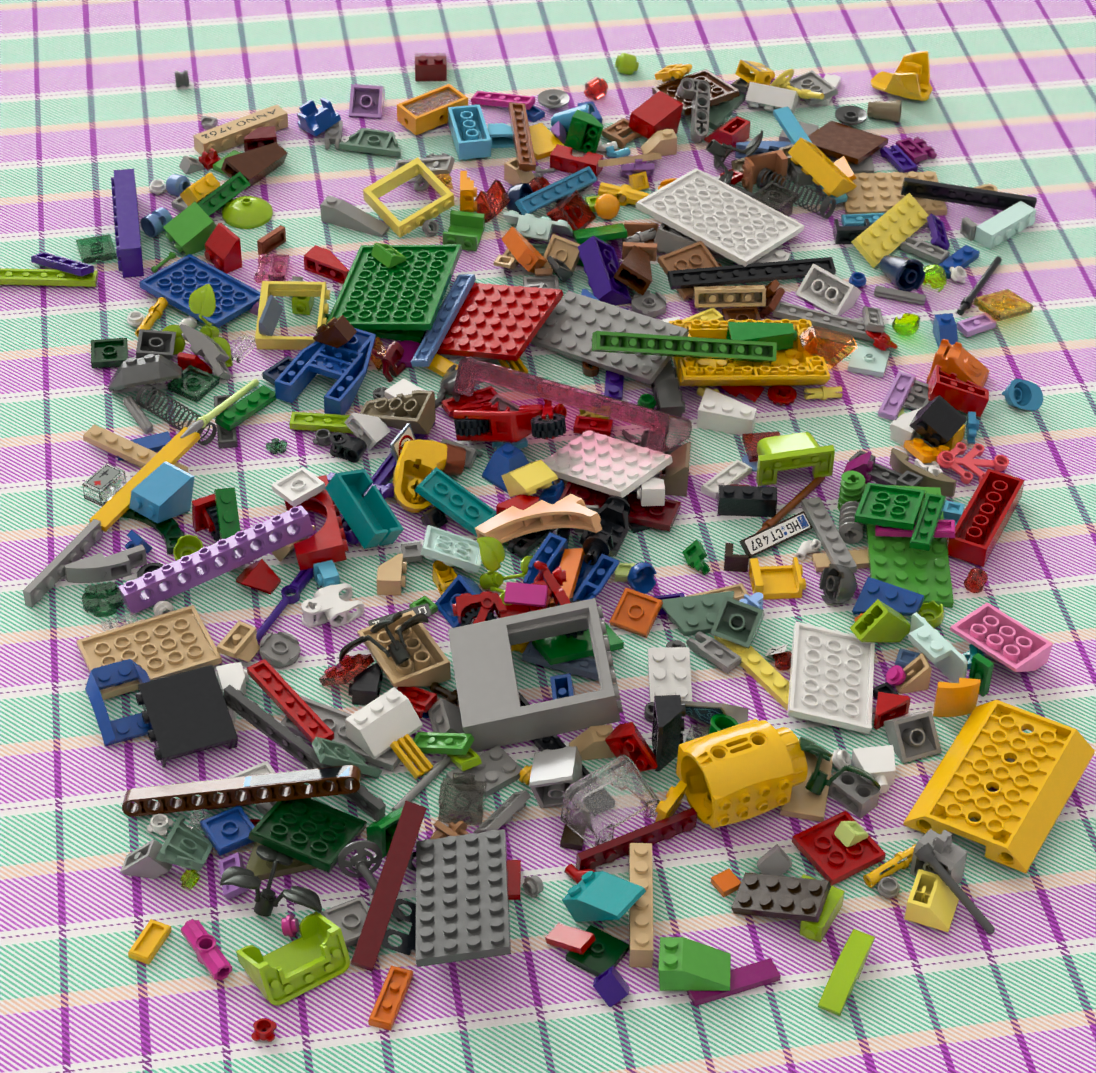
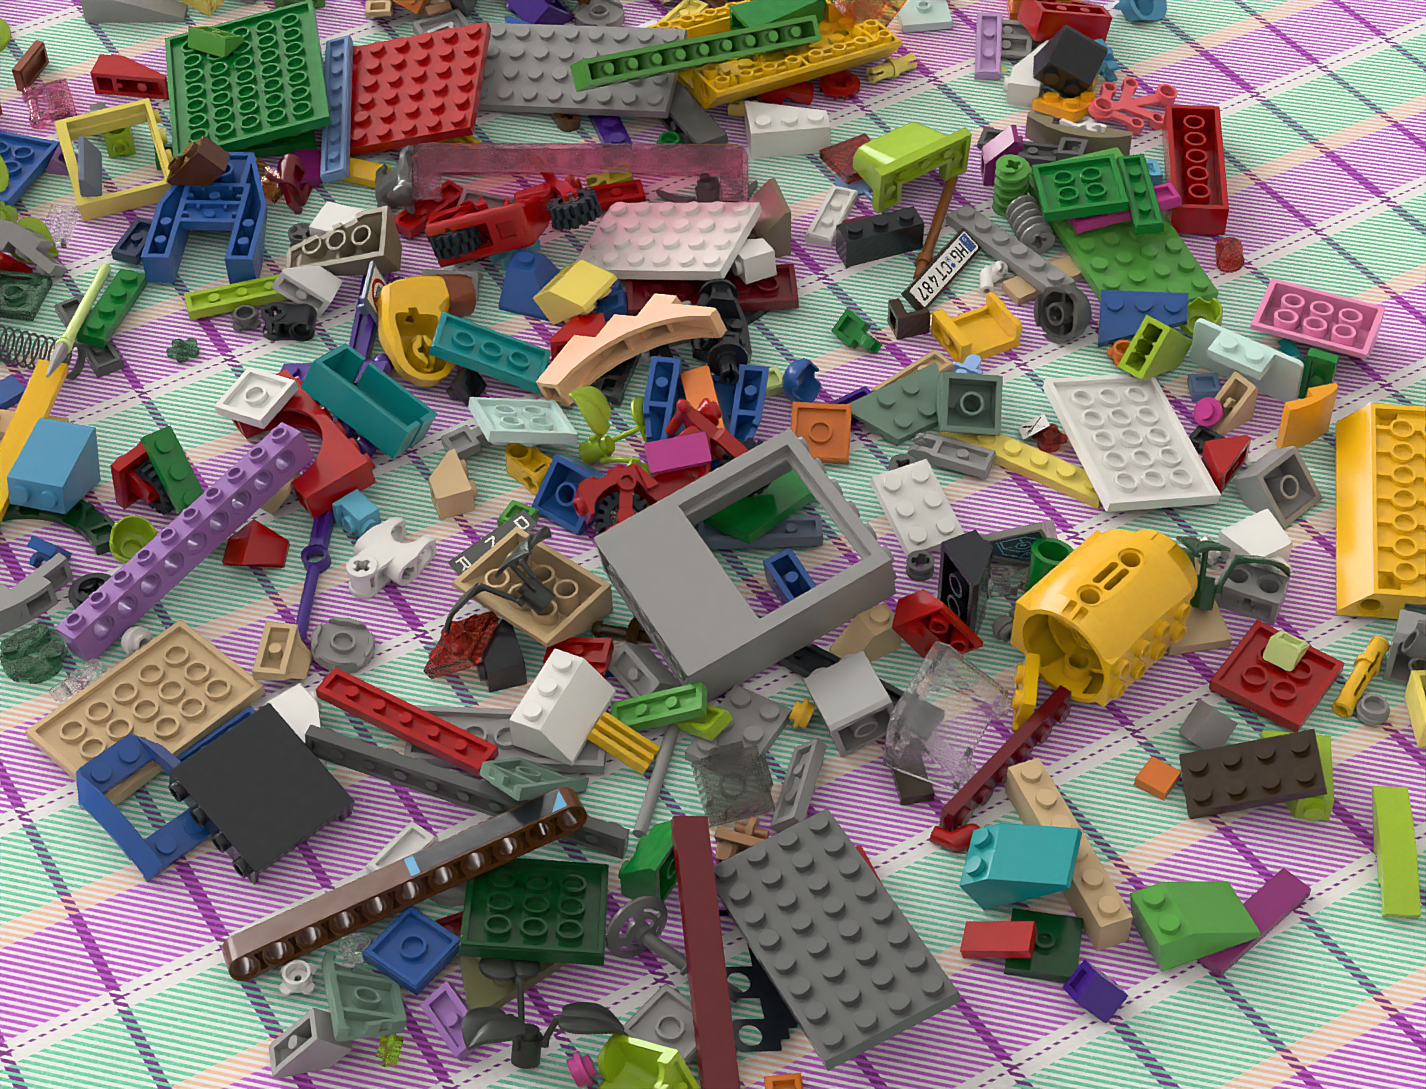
camera: 20 degrees left, 5 degrees up
(533, 885) = (900, 877): light grey plate -> none

